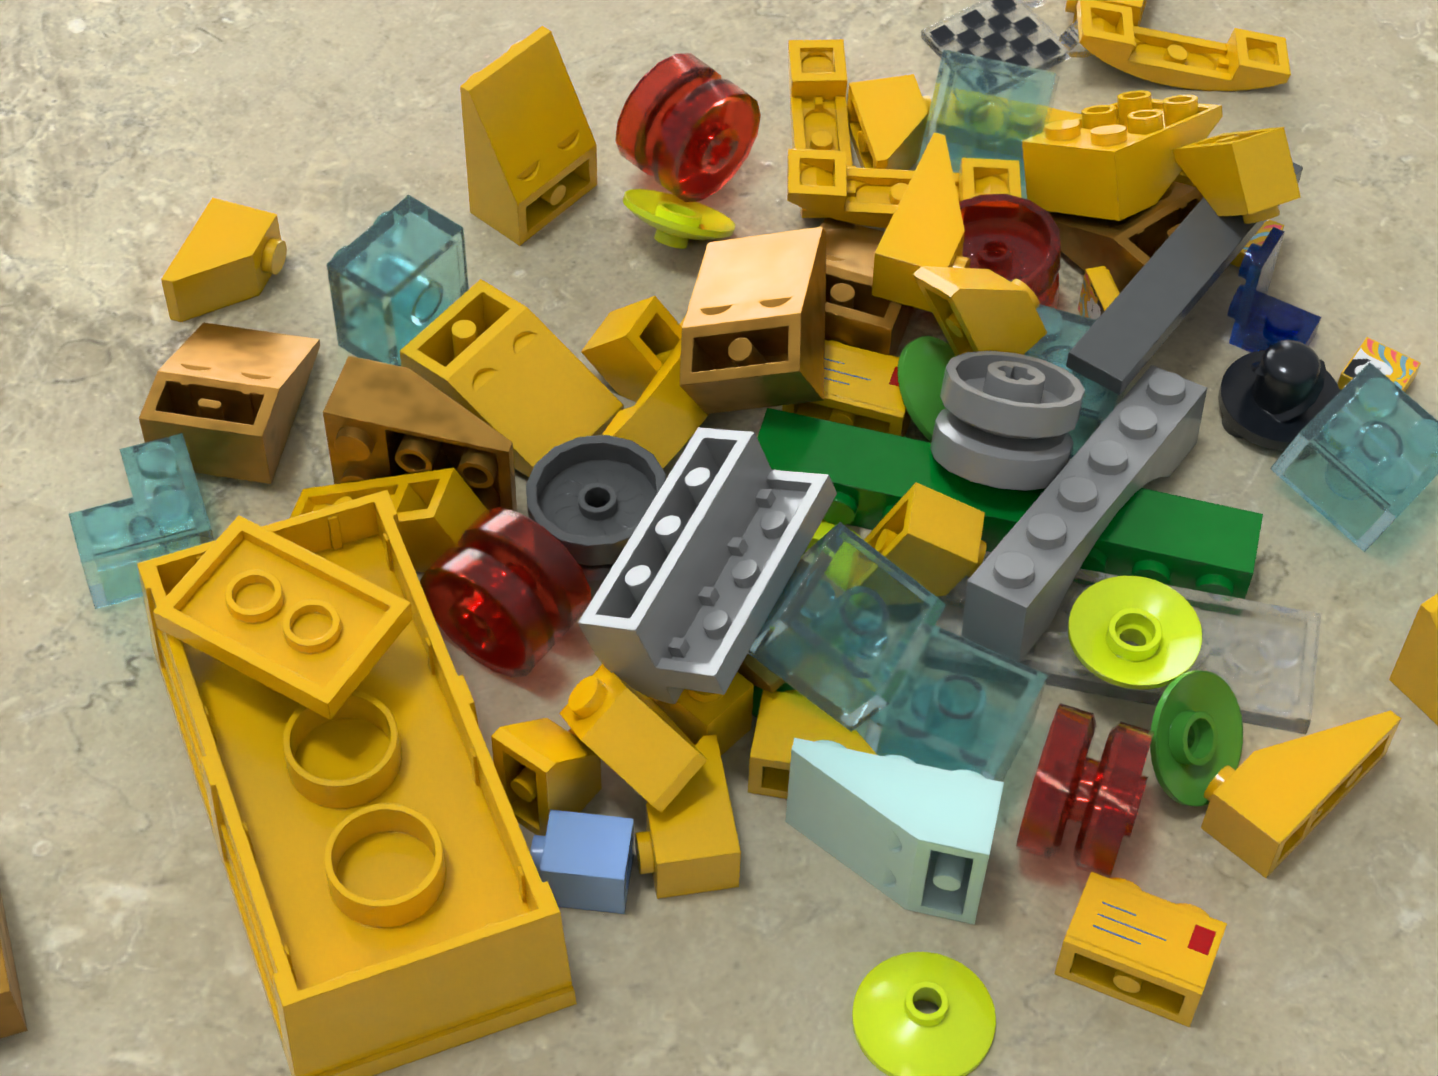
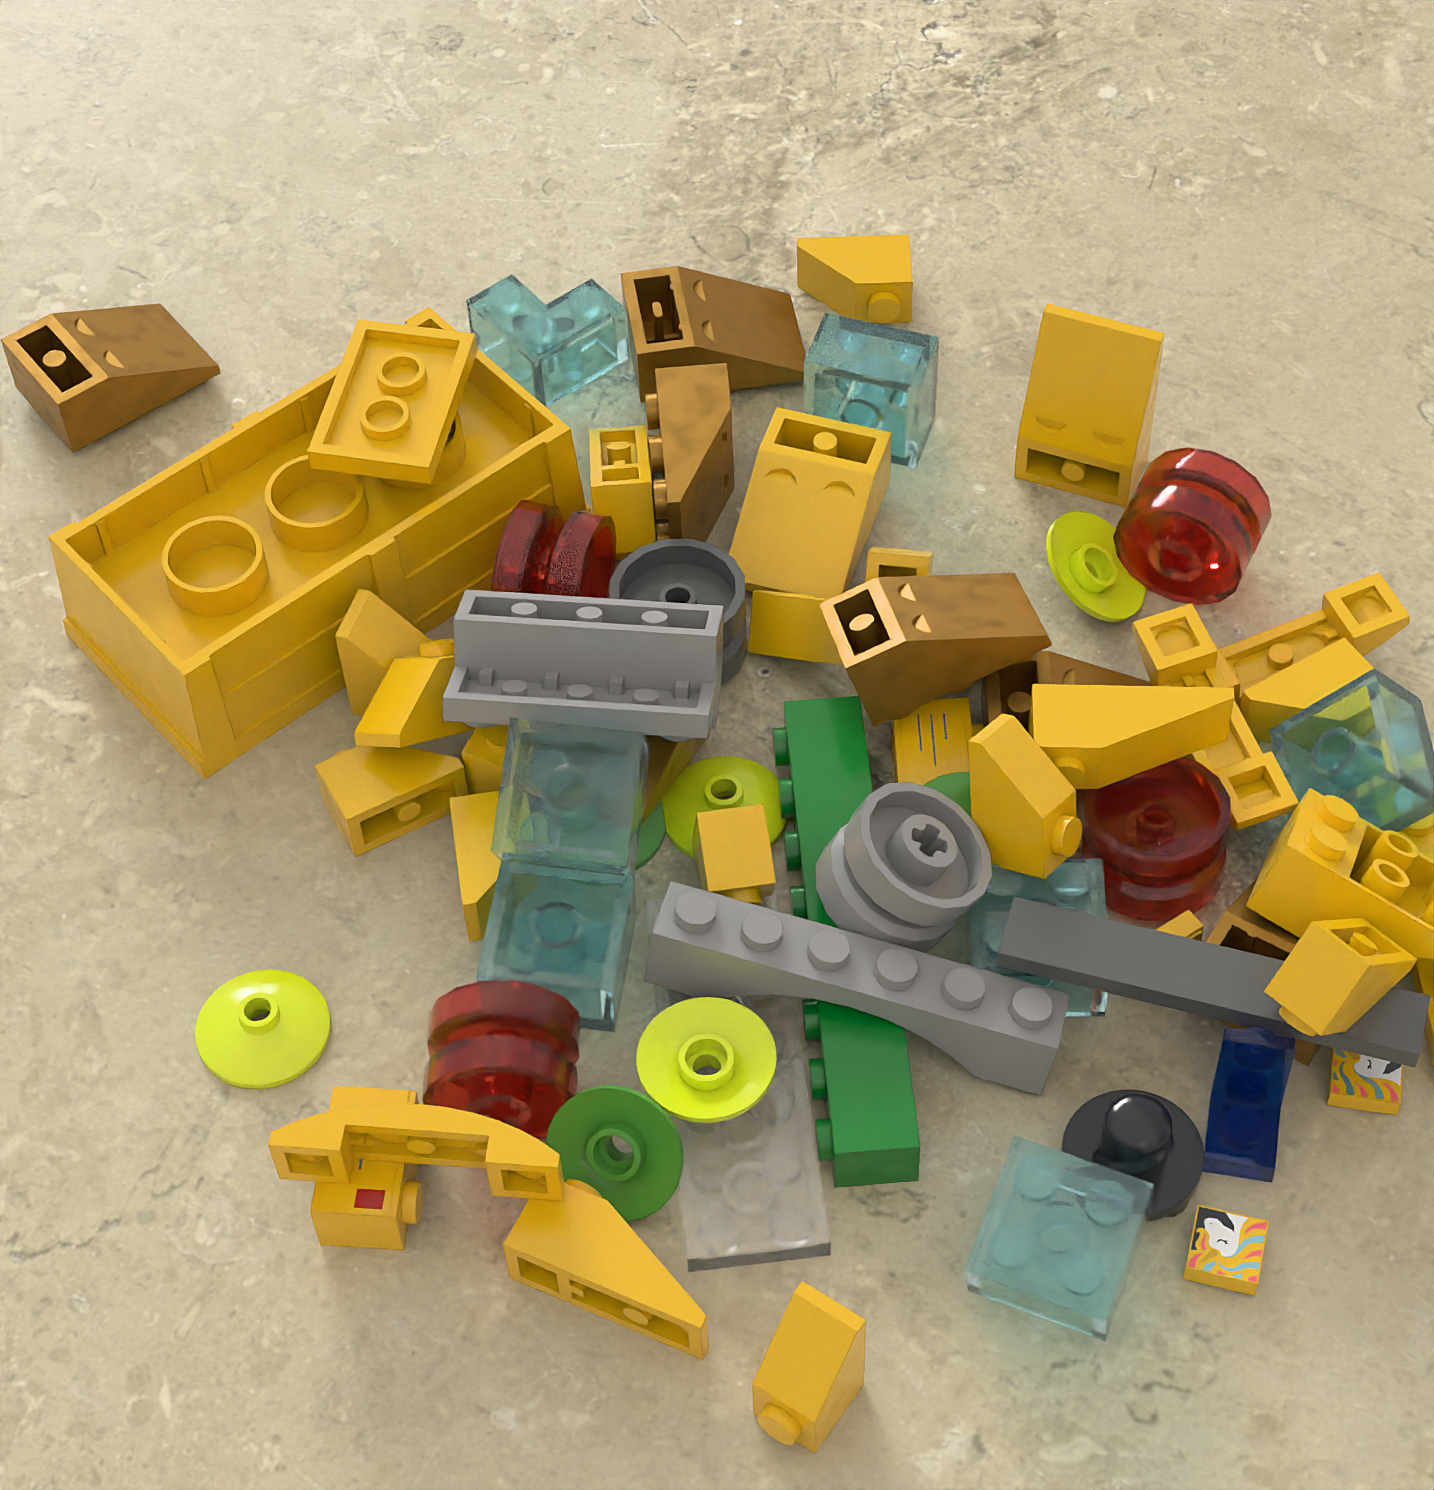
camera: 75 degrees right, 0 degrees up
(586, 860) = (318, 723): light blue brick -> none
(897, 823) = (411, 929): light aqua slope -> none
(1159, 929) = (329, 1142): none -> yellow slope

